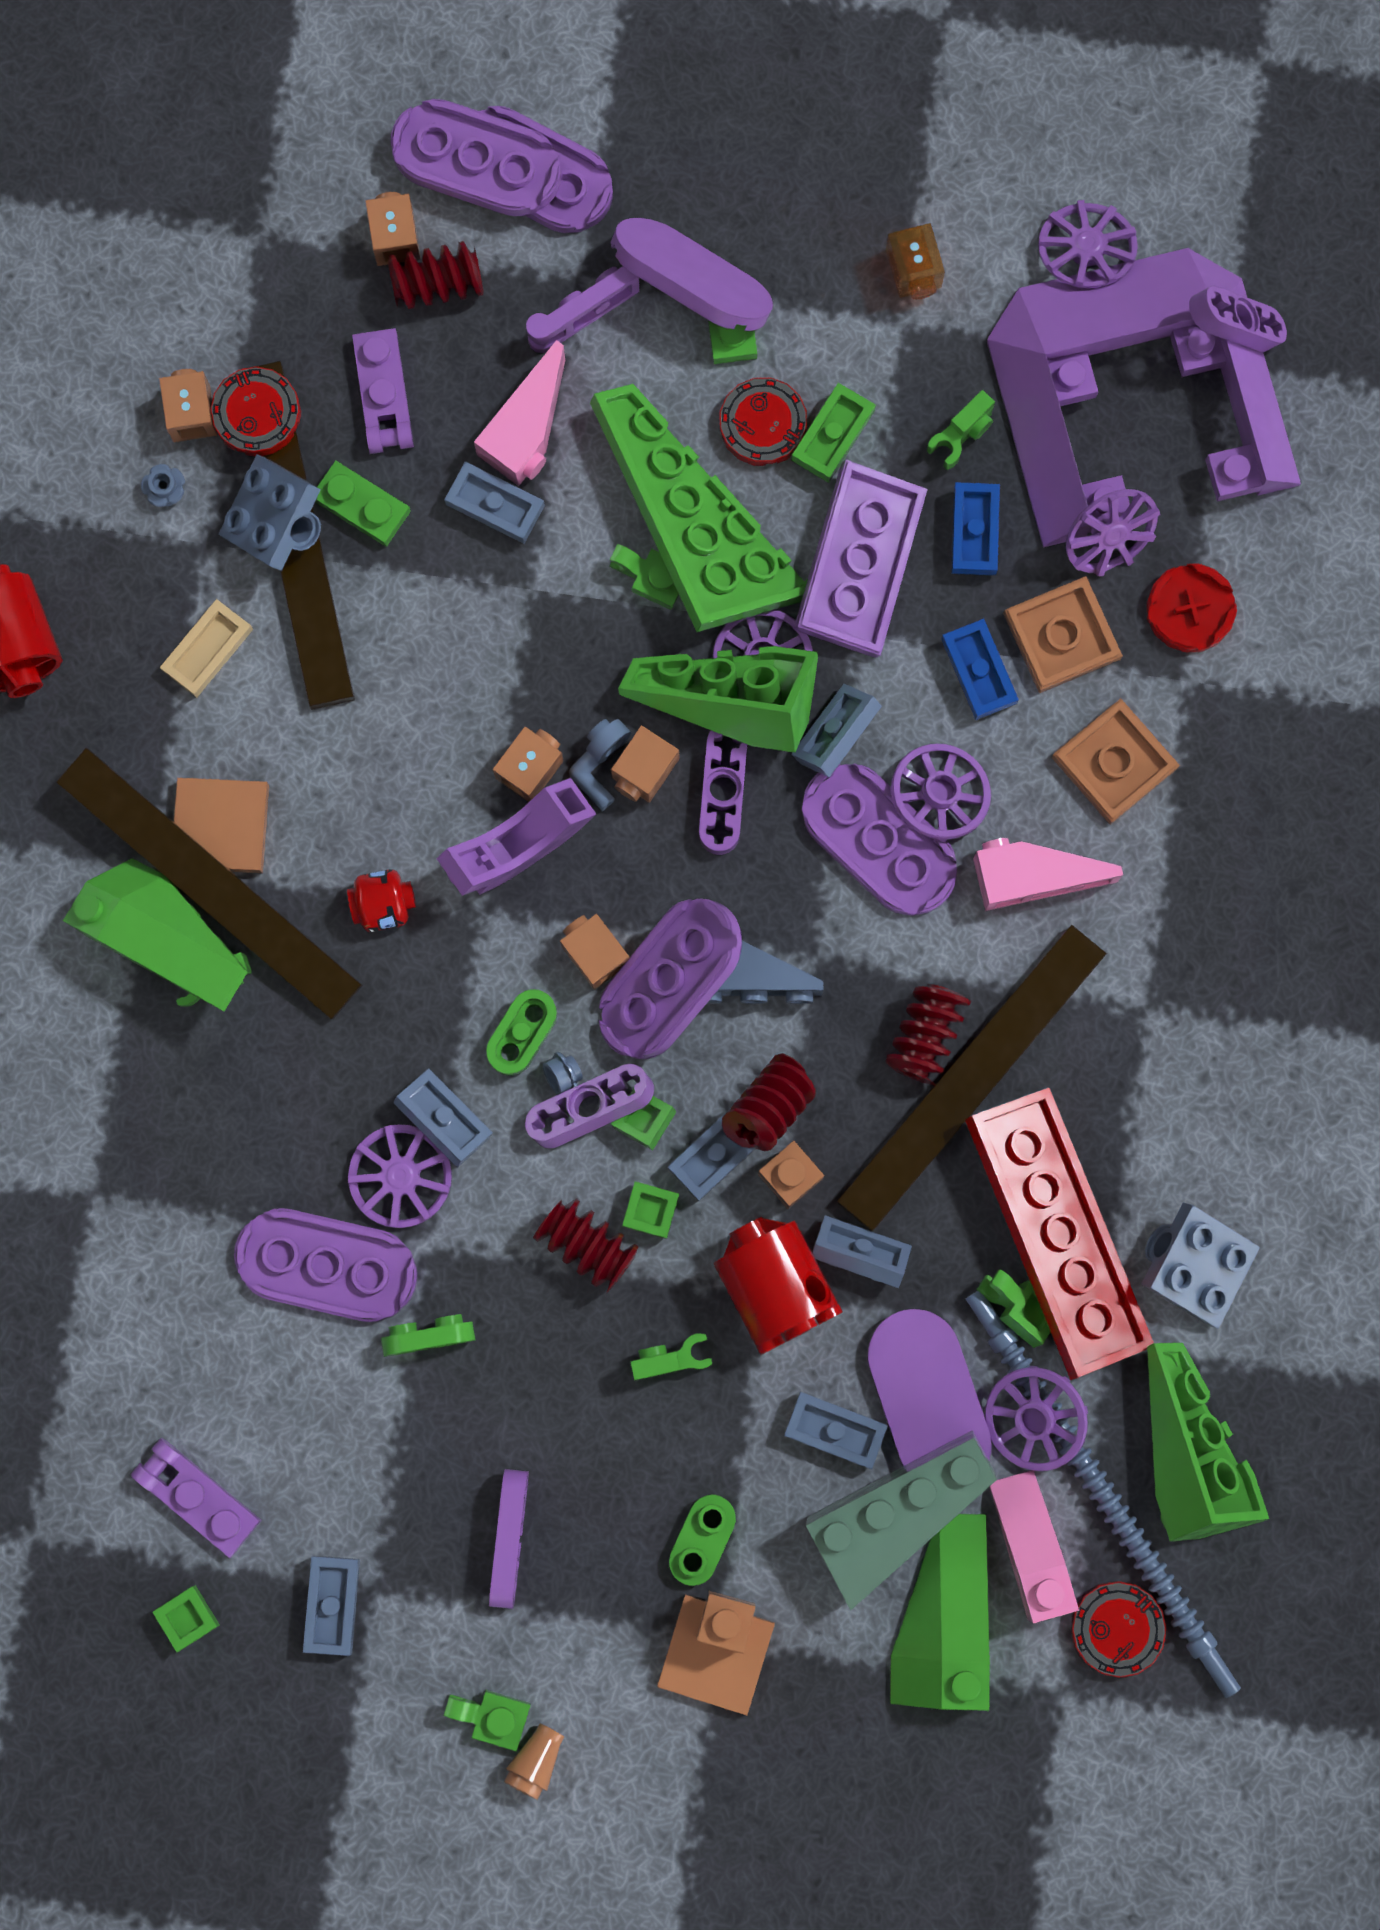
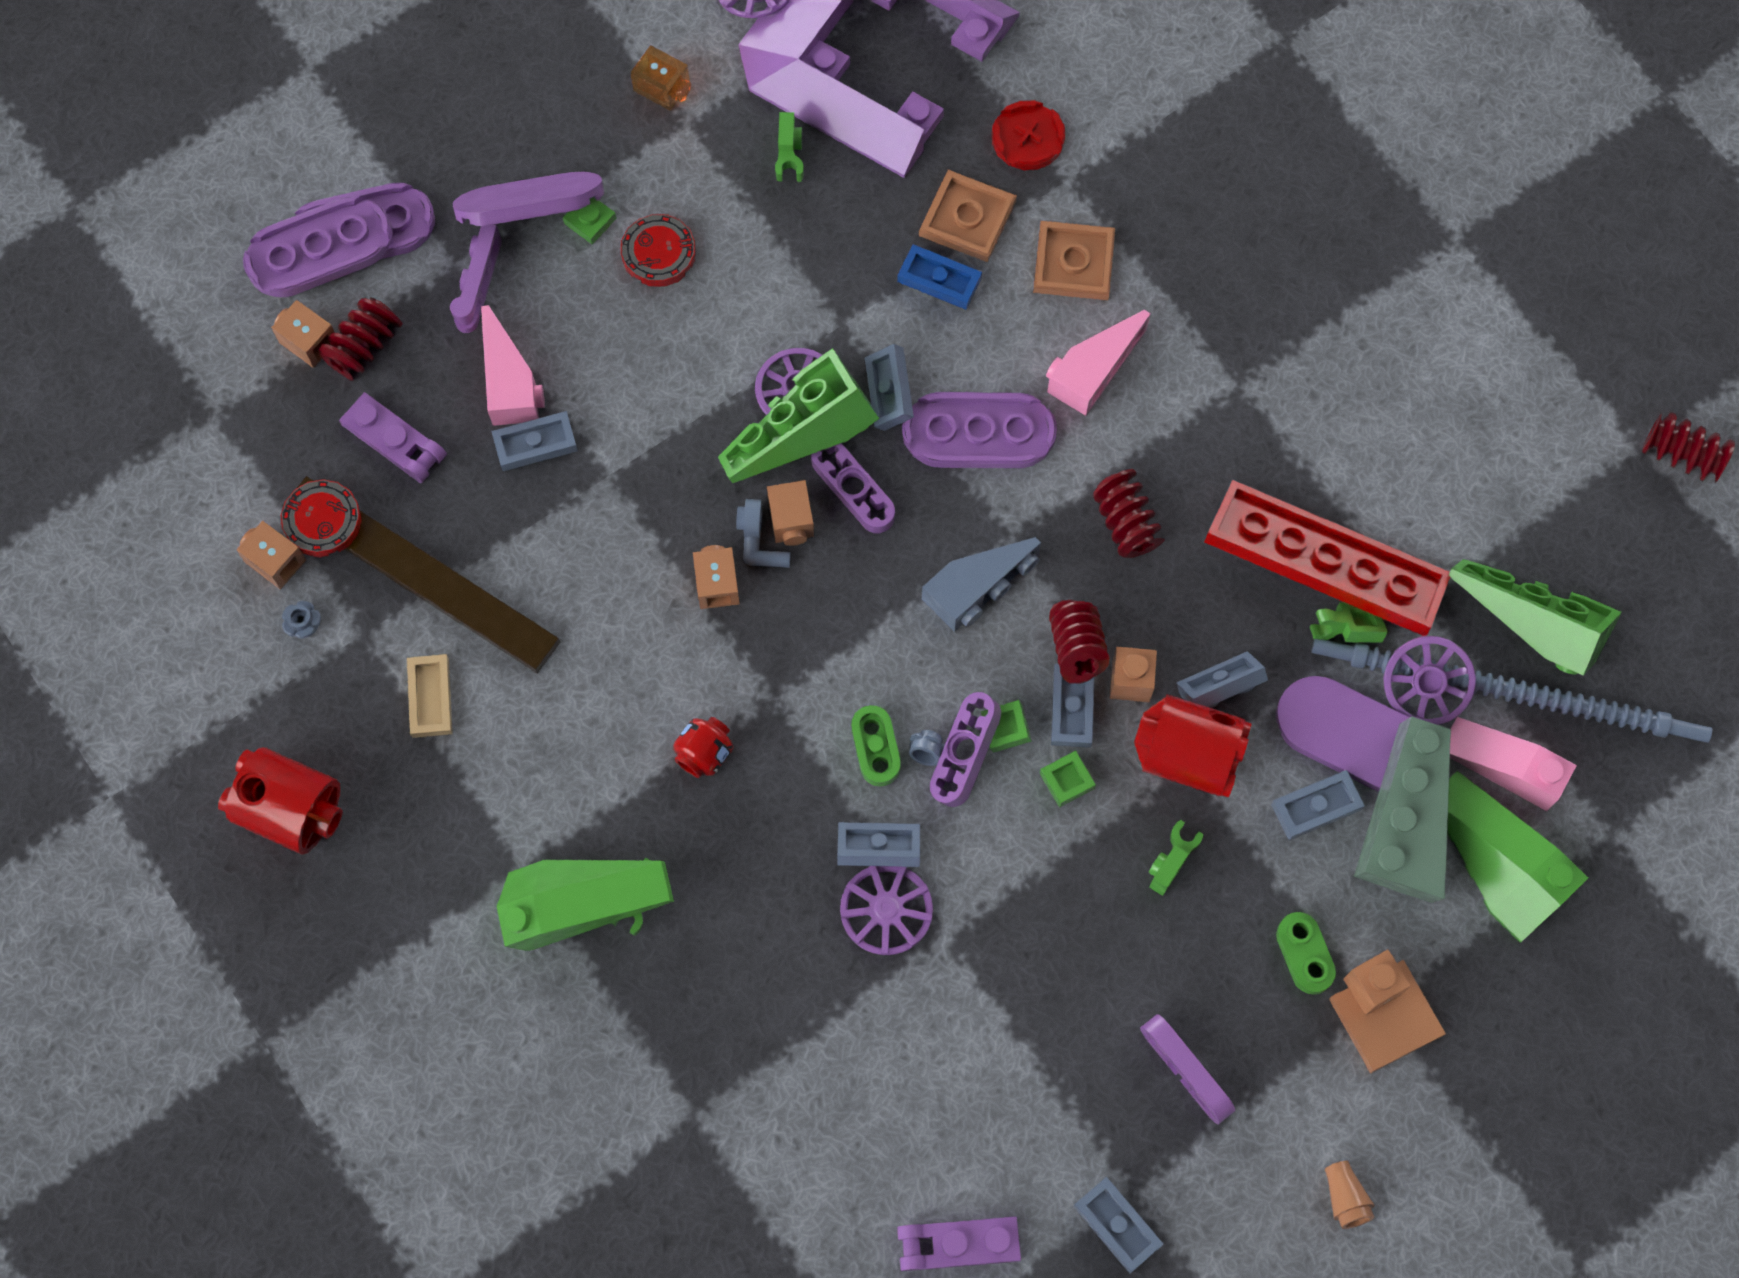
camera: 45 degrees left, 10 degrees down
(209, 883) = (577, 837): dark brown tile -> none
(225, 819) = (548, 798): nougat tile -> none
(272, 514) = (395, 568): sand blue plate -> none
(326, 1265) = (894, 1011): medium lavender tile -> none
(361, 503) = (445, 518): bright green plate -> none
(406, 1338) = (994, 1004): bright green plate -> none
(496, 1720) = (1293, 1194): bright green plate -> none
(519, 841) = (757, 624): medium lavender arch -> none
(586, 1243) = (1051, 834): dark red piece -> none
(593, 949) = (871, 652): nougat brick -> none
(650, 574) = (682, 397): bright green plate -> none
(670, 978) = (939, 622): medium lavender tile -> none
(698, 525) = (676, 340): bright green wing -> none
(833, 432) = (709, 218): bright green plate -> none
(860, 559) = (801, 276): medium lavender tile -> none
(940, 792) = (989, 368): medium lavender wheel -> none
(971, 1078) = (1180, 522): dark brown tile -> none
(975, 528) = (854, 199): blue plate -> none
(1112, 531) = (940, 125): medium lavender wheel -> none
(1118, 1629) = (1607, 761): tile -> none
(1198, 1264) = (1426, 500): sand blue plate -> none

